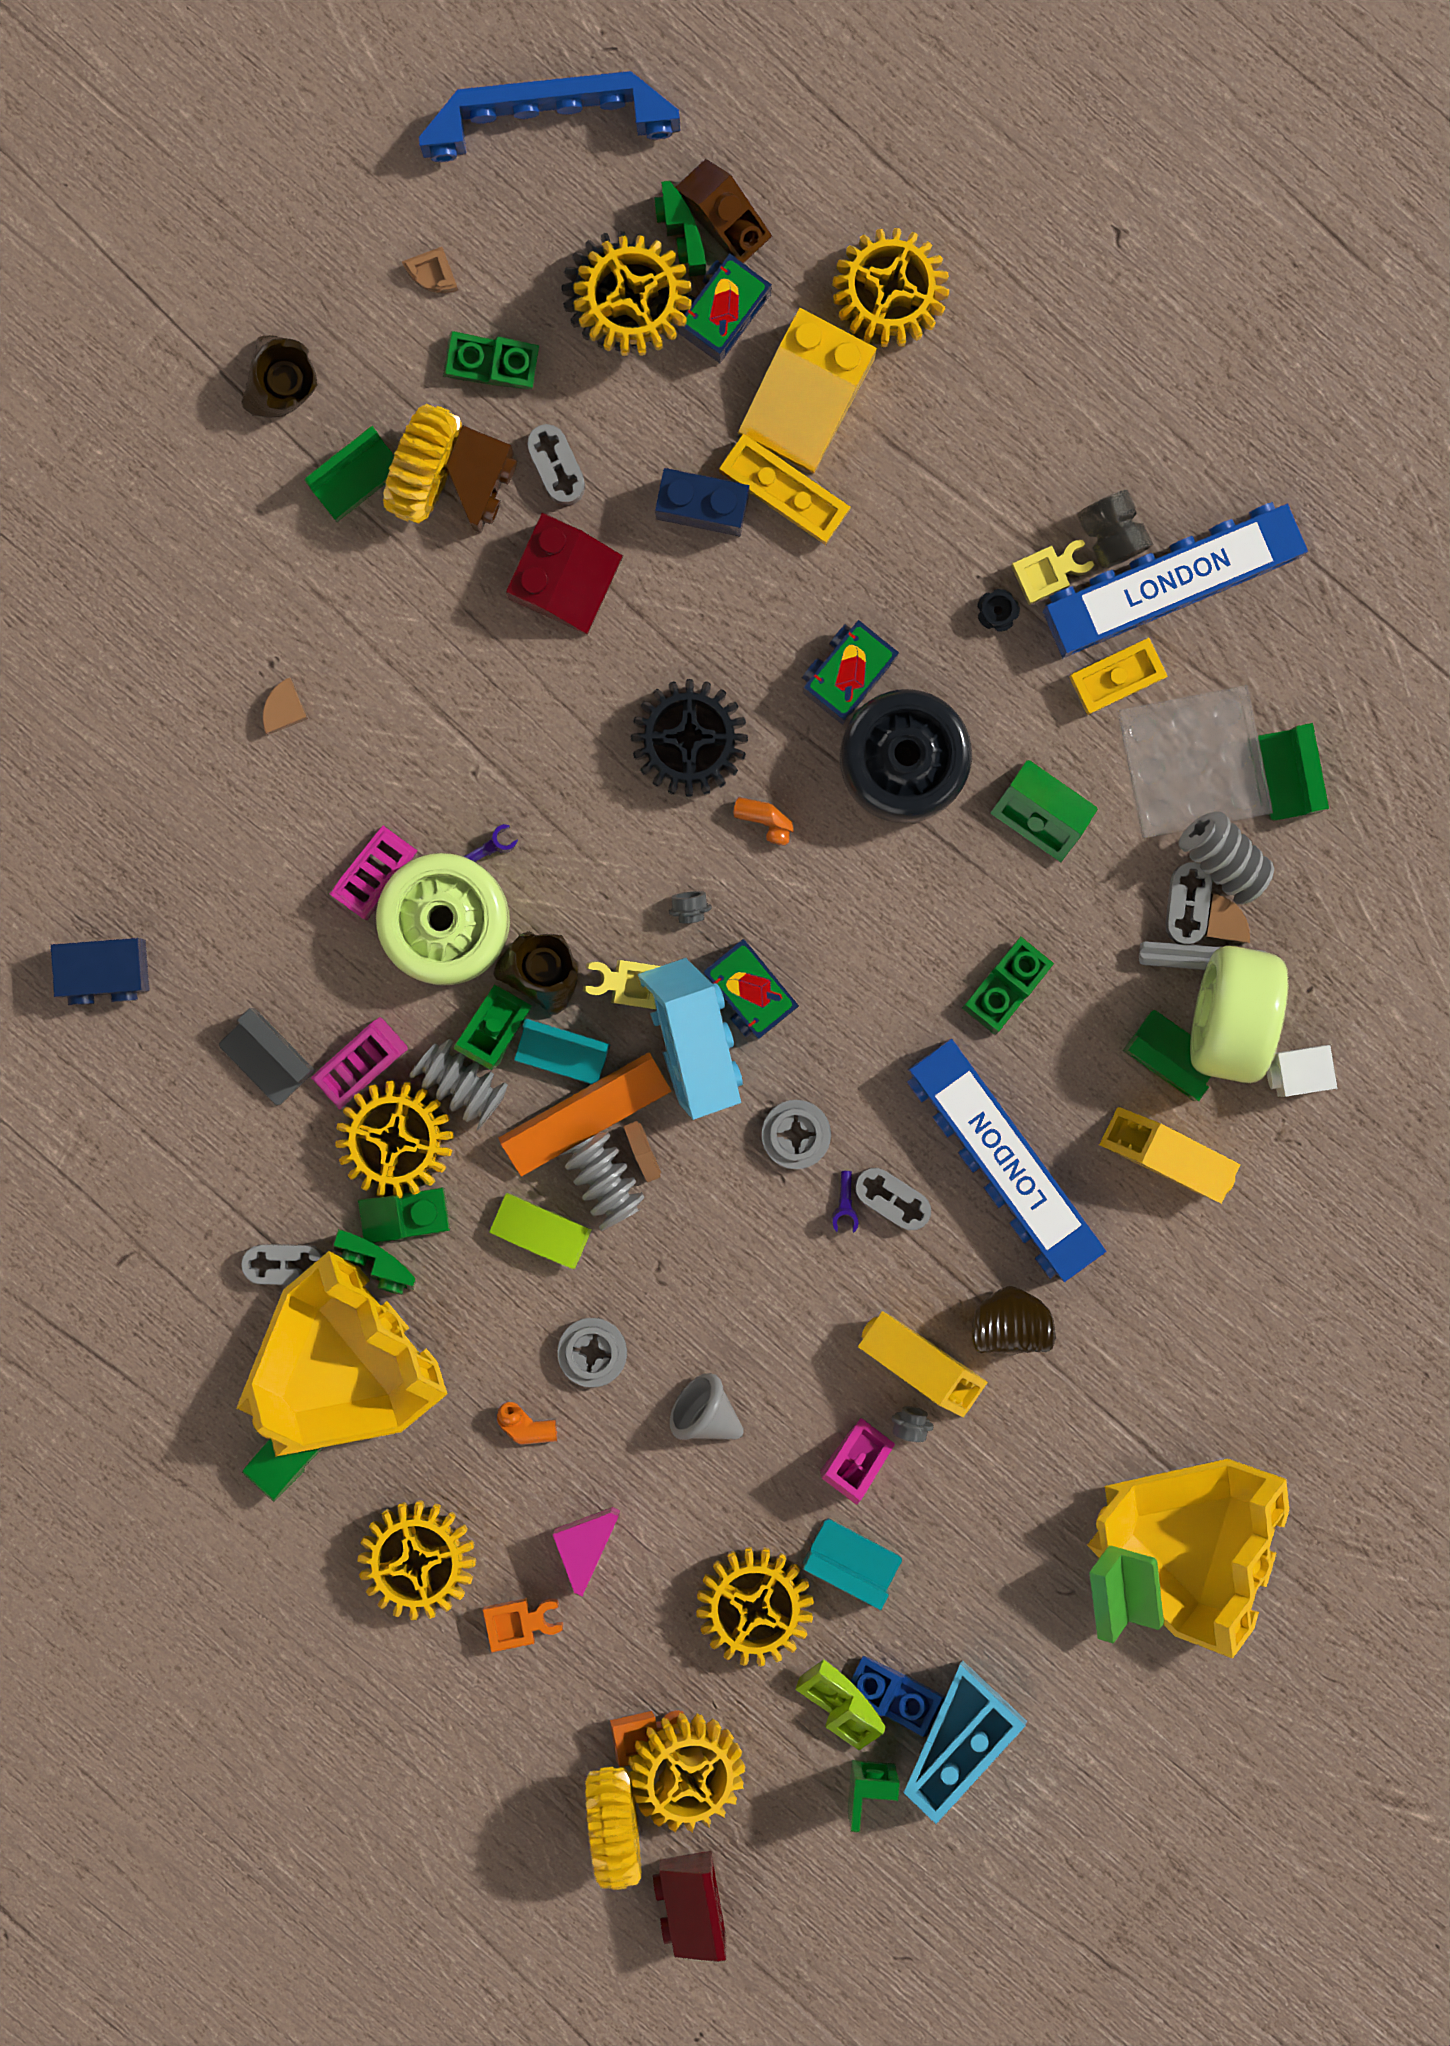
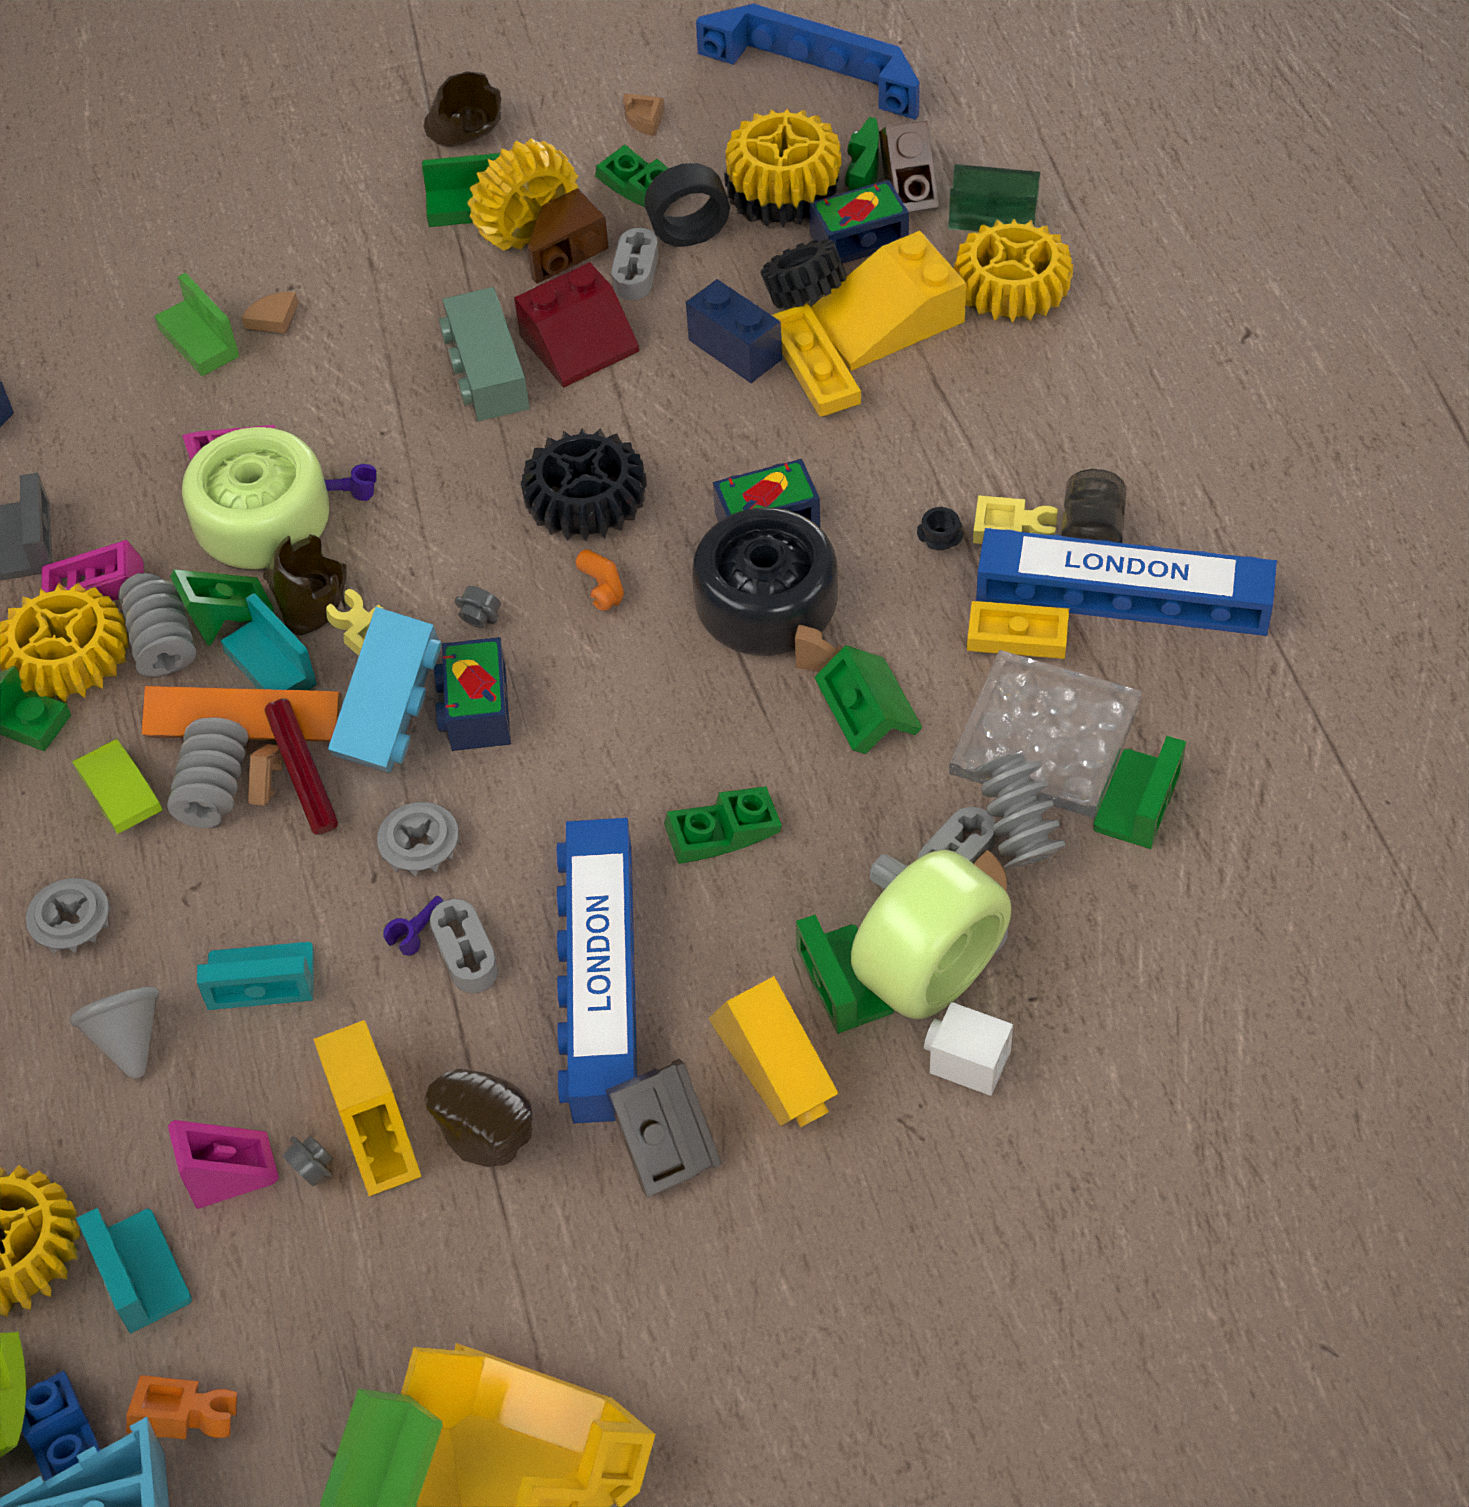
camera: 35 degrees right, 35 degrees down
(237, 769) = (198, 329): none -> bright green panel
(506, 651) = (483, 354): none -> sand green brick
(570, 386) = (679, 182): none -> black tyre
(668, 1133) = (301, 766): none -> dark red axle
(706, 394) = (803, 273): none -> black tyre
(764, 1309) = (257, 976): none -> teal panel
(824, 211) = (992, 194): none -> clear green hinge
(953, 1639) = (177, 1406): none -> orange plate
(981, 790) = (811, 650): none -> medium nougat tile
(1138, 1260) = (663, 1127): none -> plate

